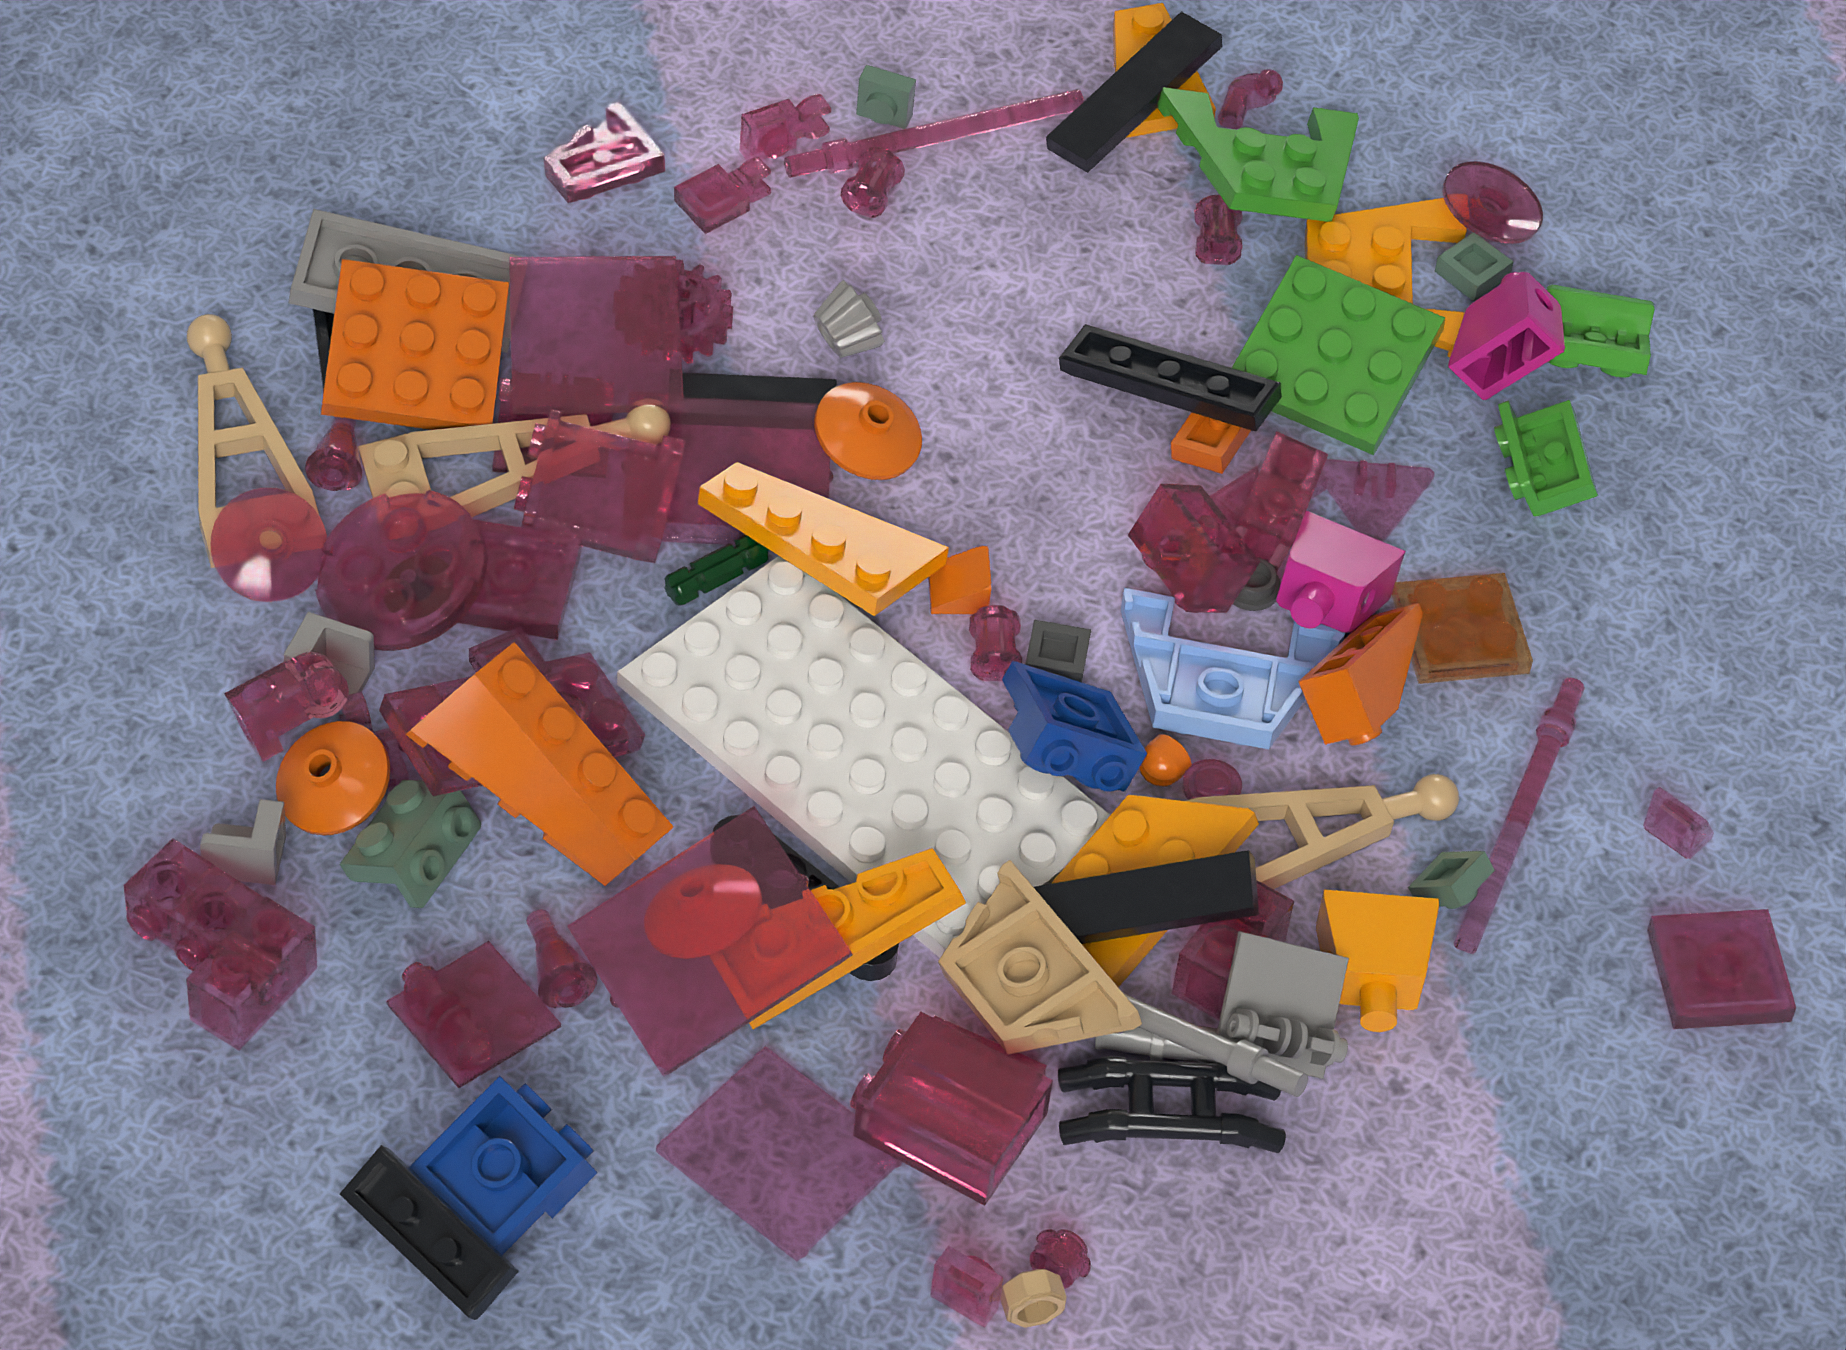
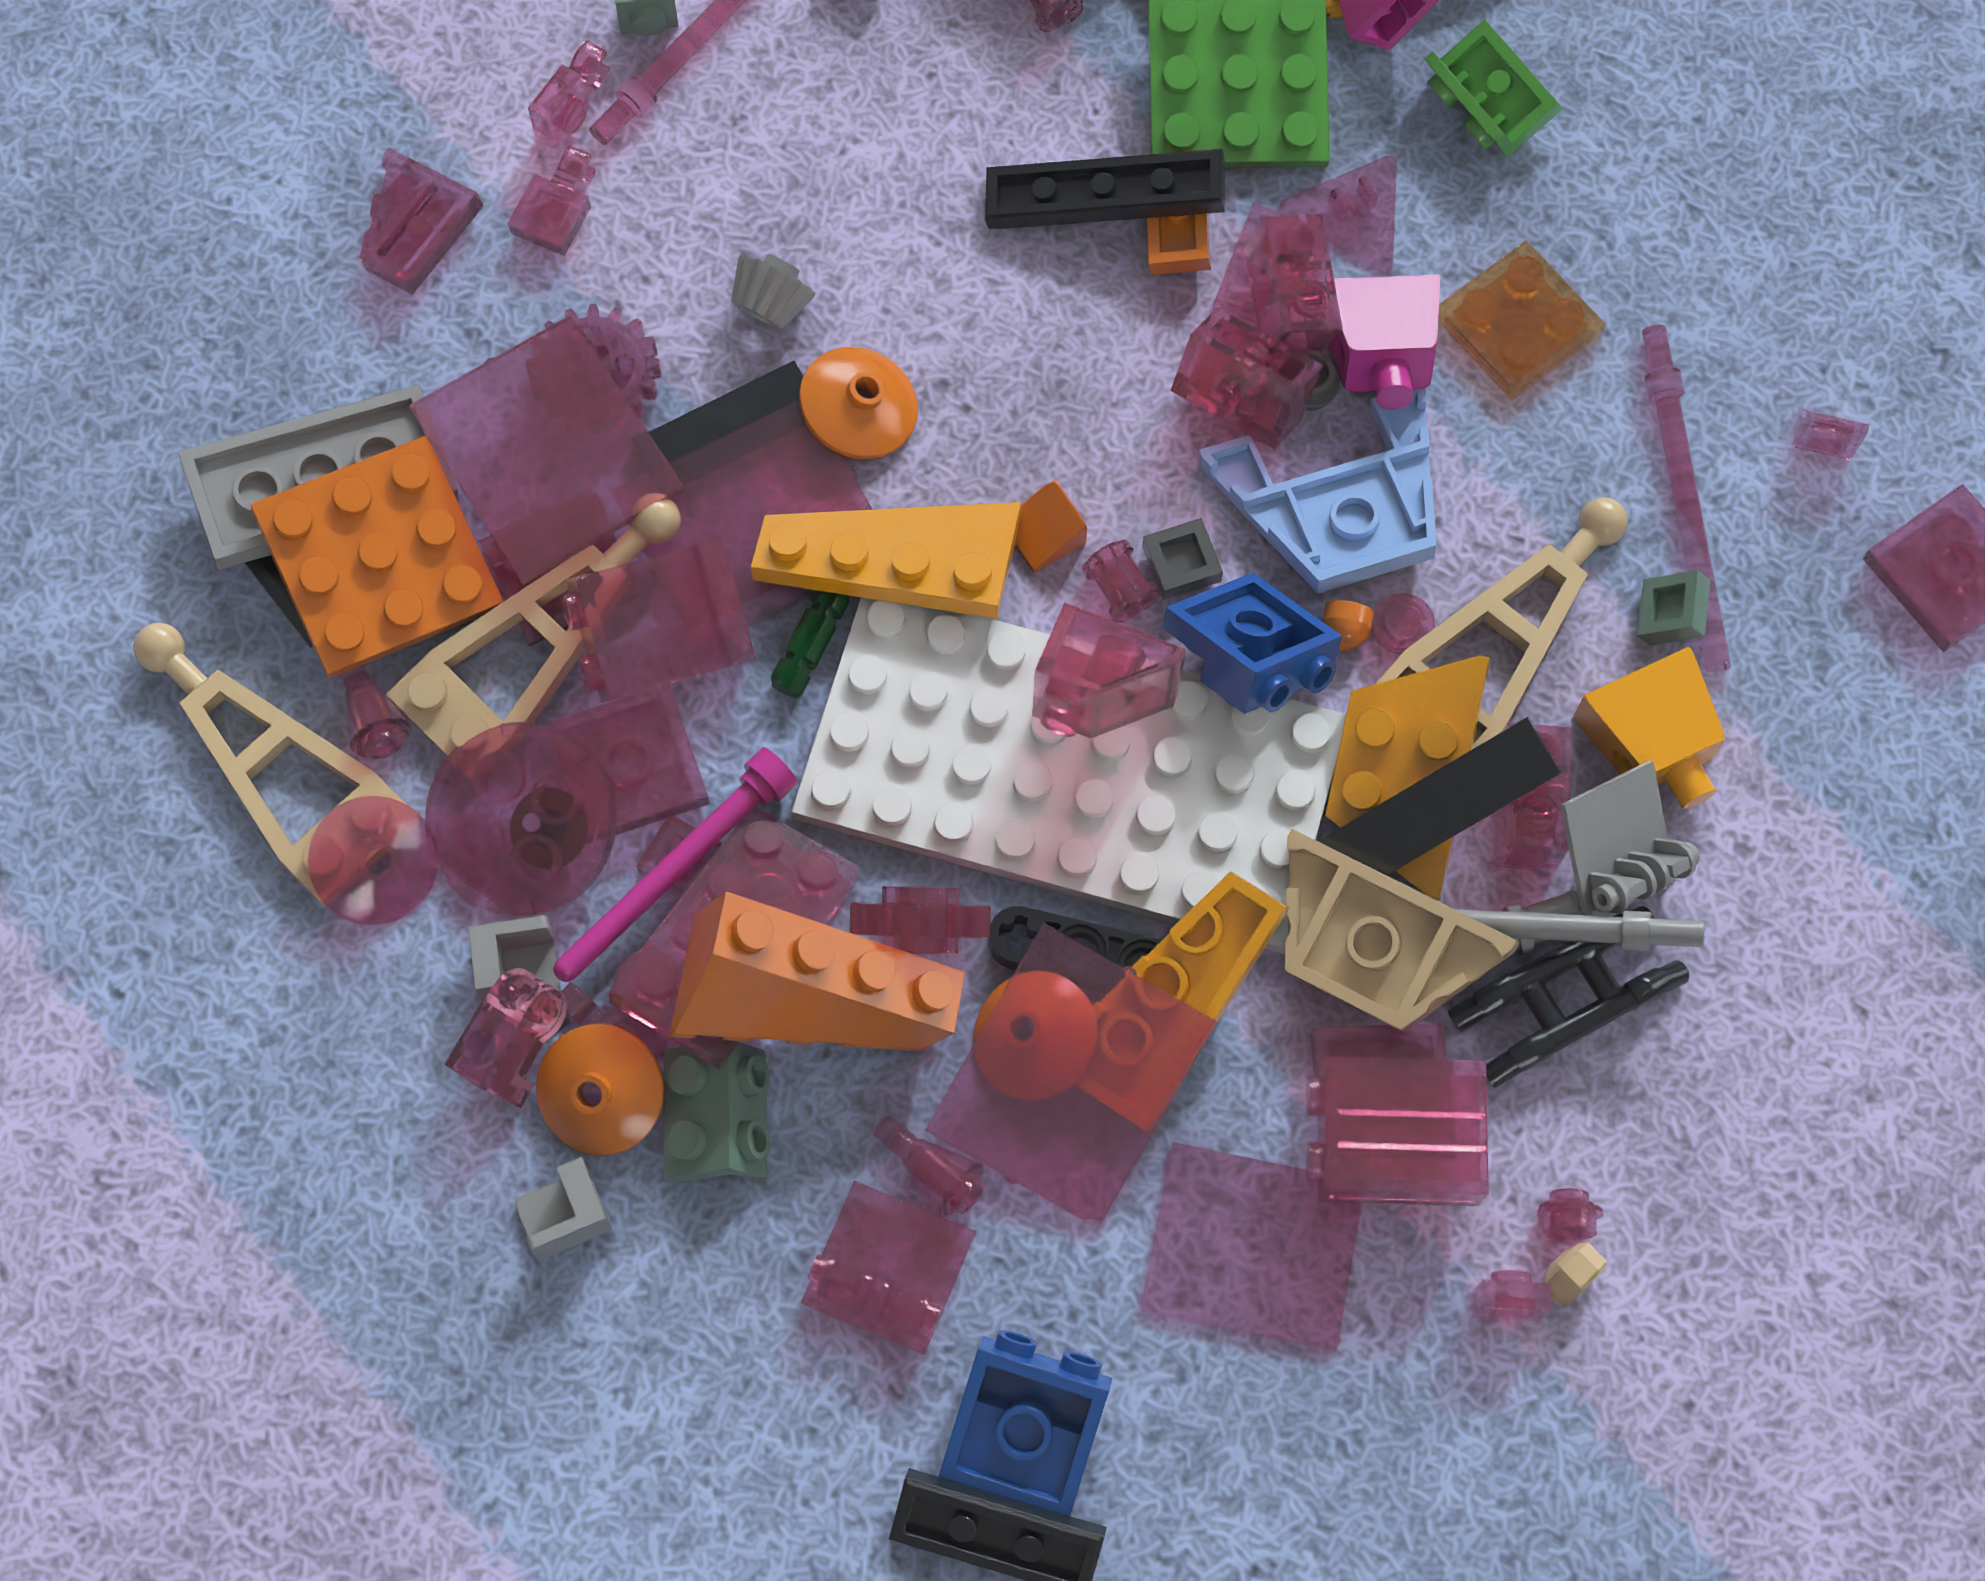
camera: 25 degrees left, 20 degrees up
(200, 902) = (569, 1299): clear pink brick -> none
(252, 973) = (663, 1355): clear pink brick -> none
(608, 636) = (764, 780): none -> dark pink piece
(668, 774) = (920, 919): none -> clear pink gear
(872, 182) = (691, 111): clear pink bush -> none
(923, 673) = (1102, 675): none -> clear pink slope
(1363, 677) = (1474, 429): orange slope -> none

